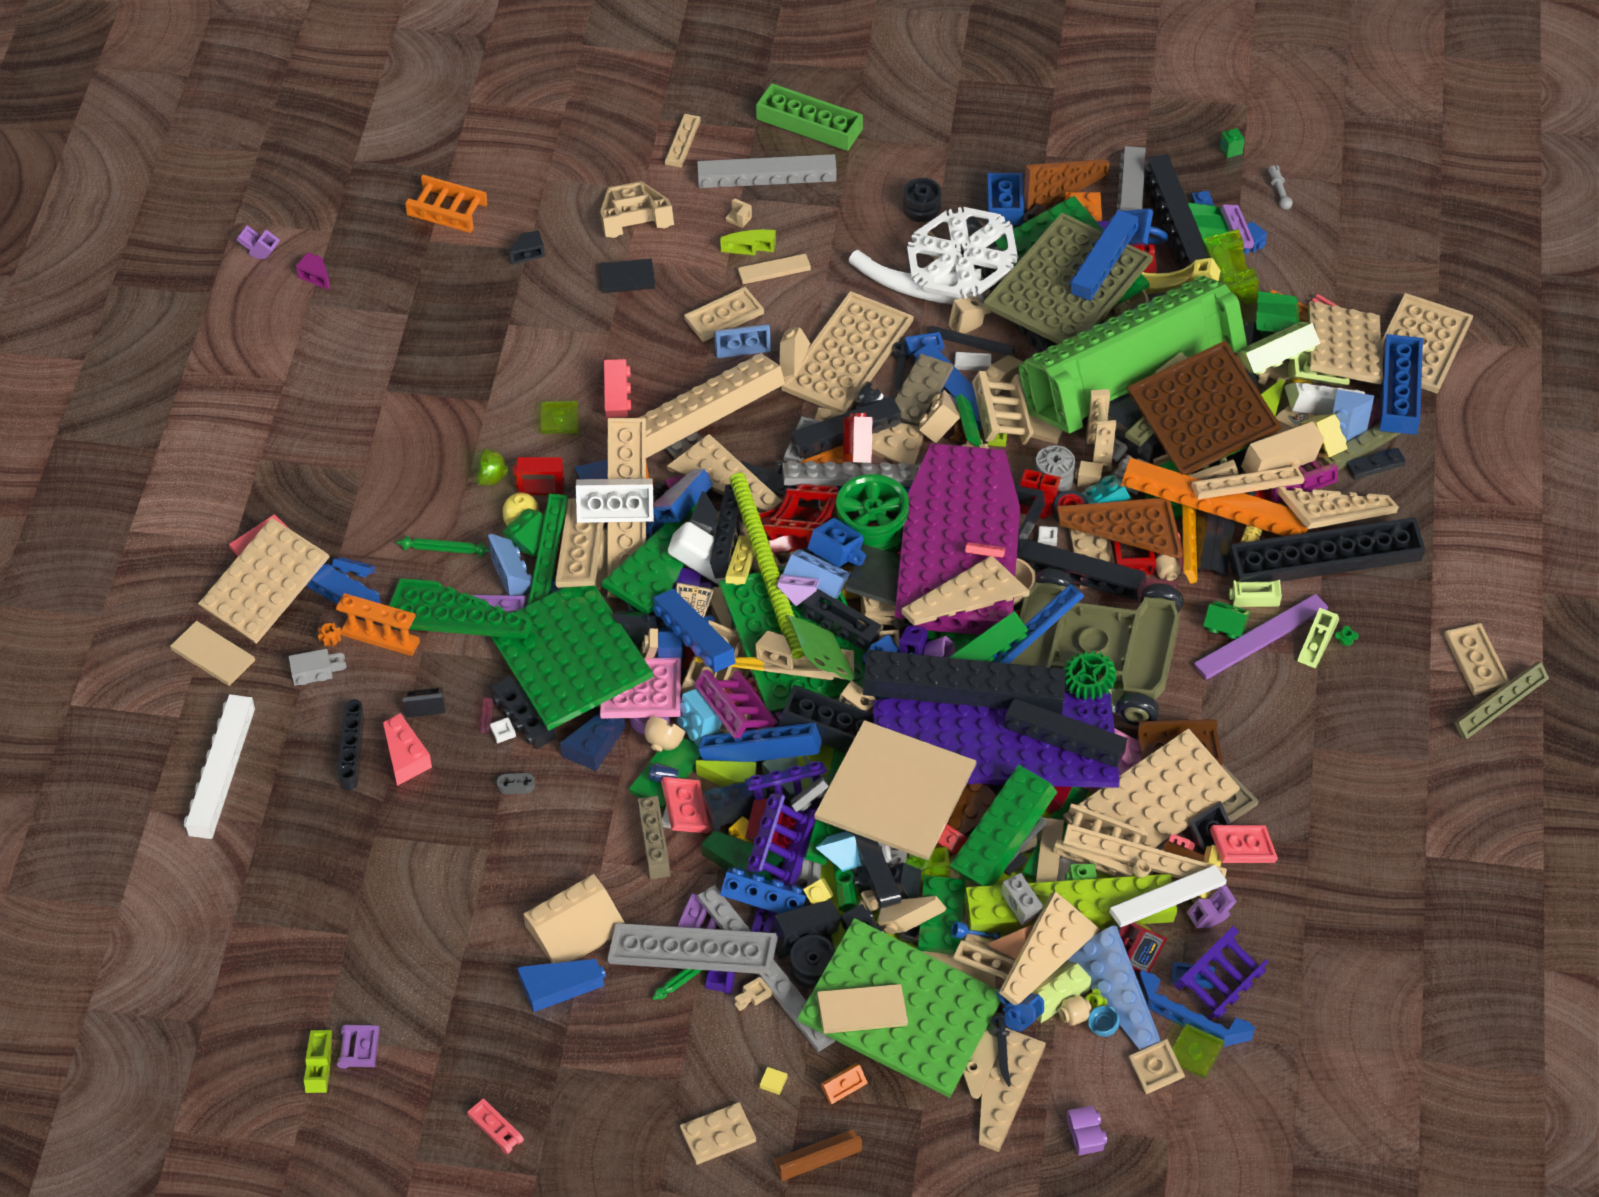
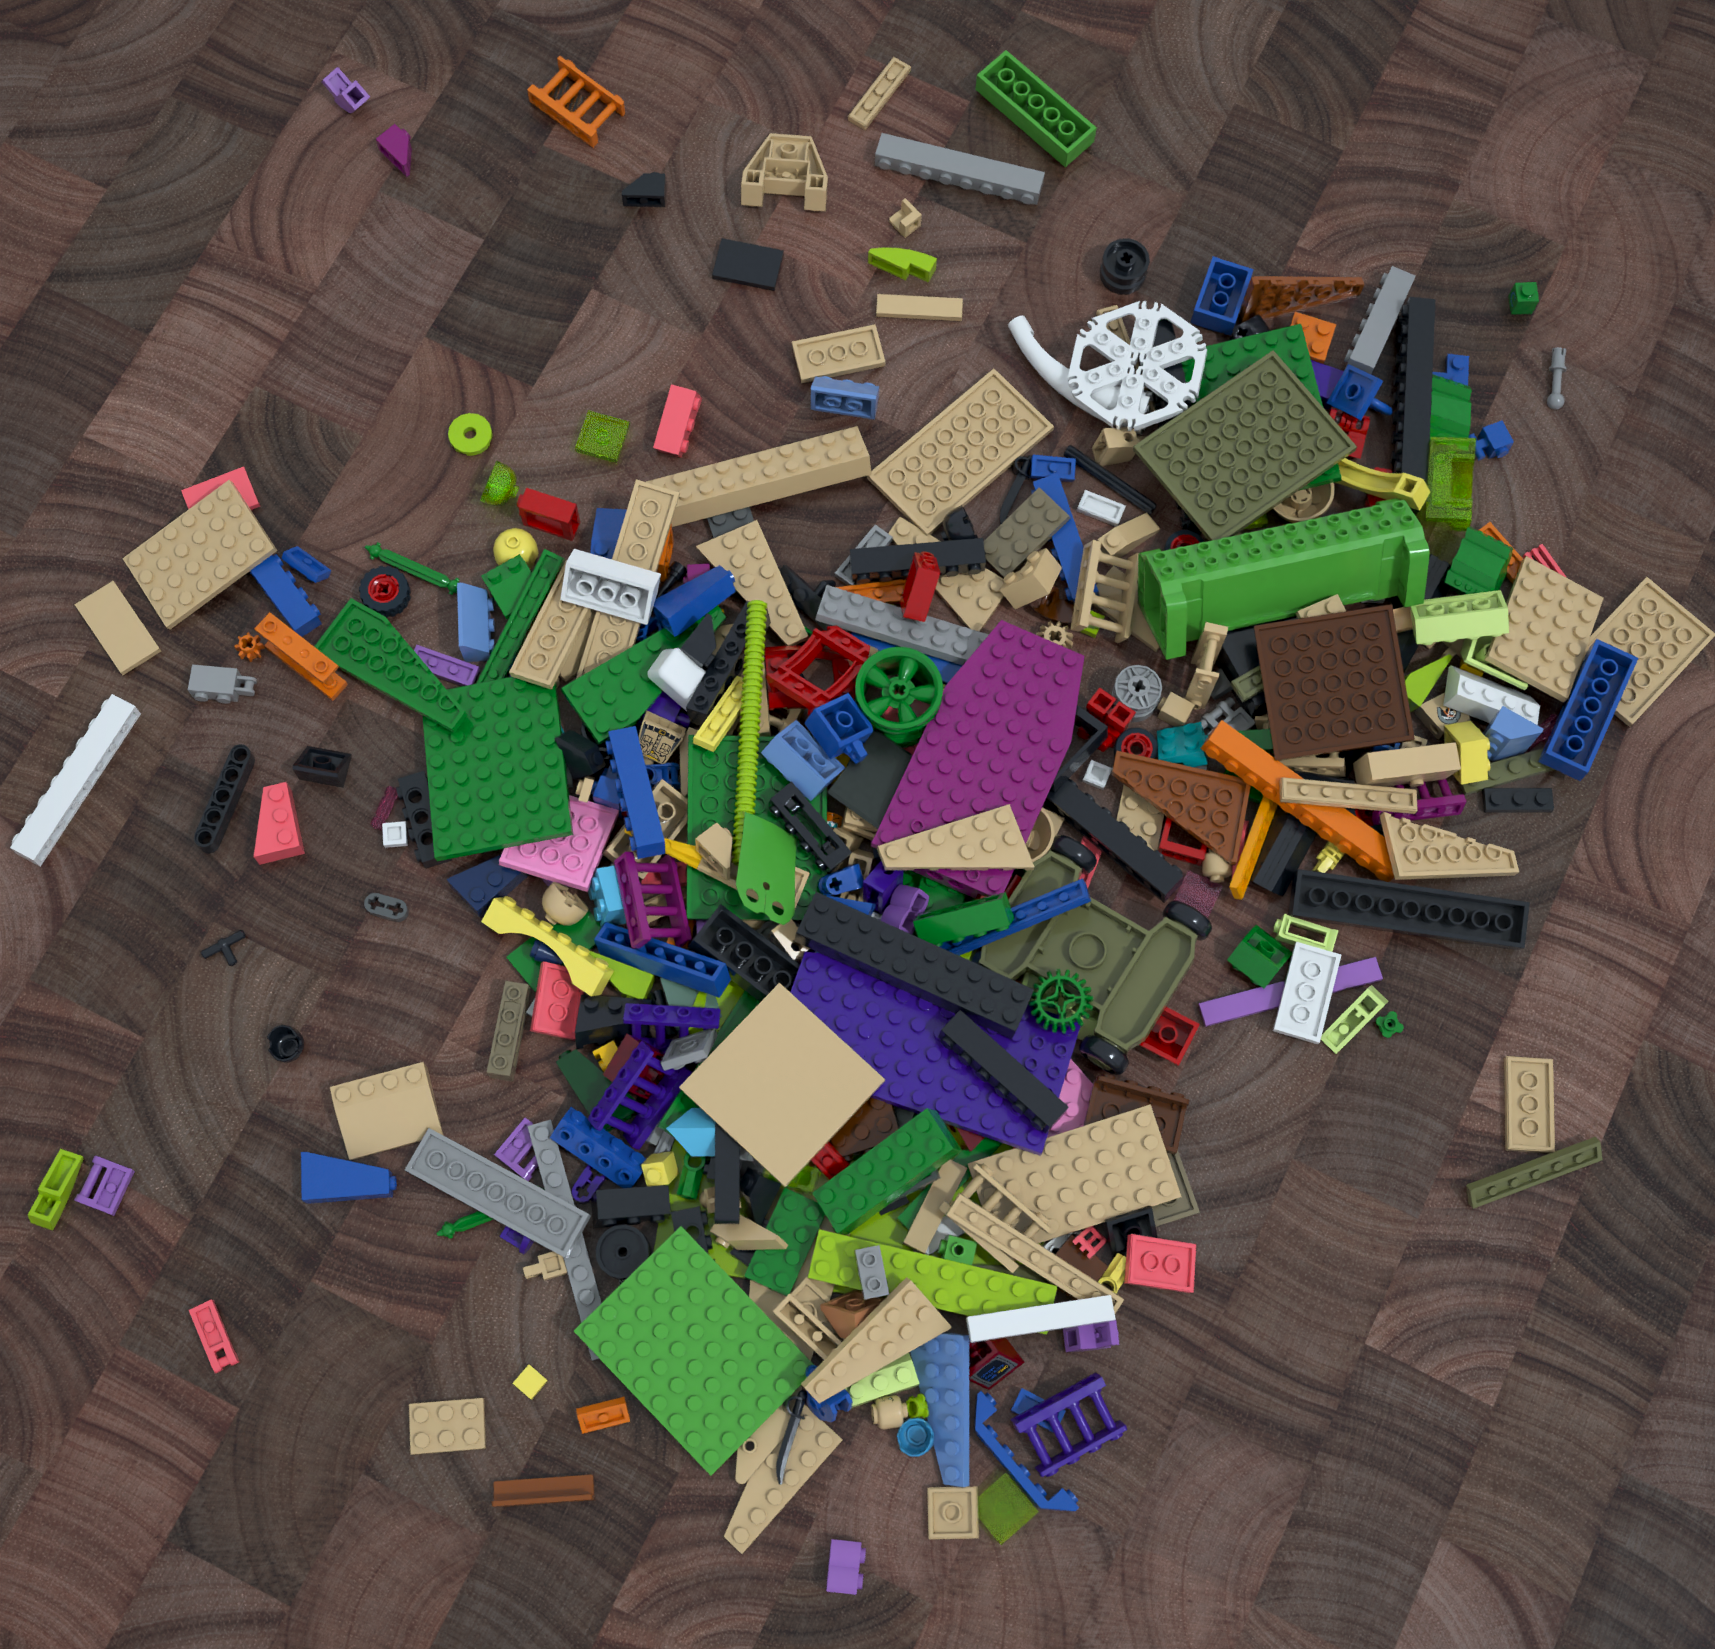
camera: 15 degrees right, 20 degrees up
(391, 847) = (224, 945): none -> black piece
(426, 564) = (381, 579): none -> black wheel
(447, 437) = (466, 423): none -> lime tile
(472, 898) = (285, 1043): none -> black hair
(623, 759) = (585, 971): none -> light yellow arch
(792, 351) = (895, 433): tan slope -> none
(797, 588) = (770, 776): lavender slope -> none
(862, 1008) = (646, 1346): tan tile -> none
(960, 930) = (795, 1276): blue hinge -> none
(968, 420) = (1059, 598): green tile -> none
(983, 549) = (1004, 794): coral tile -> none
(1104, 255) = (1298, 430): blue brick -> none
(1141, 868) = (1024, 1273): tan hinge -> none
(1182, 684) = (1171, 1036): none -> red slope
(1235, 220) = (1481, 422): medium lavender plate -> none
(1274, 629) = (1307, 993): none -> white plate

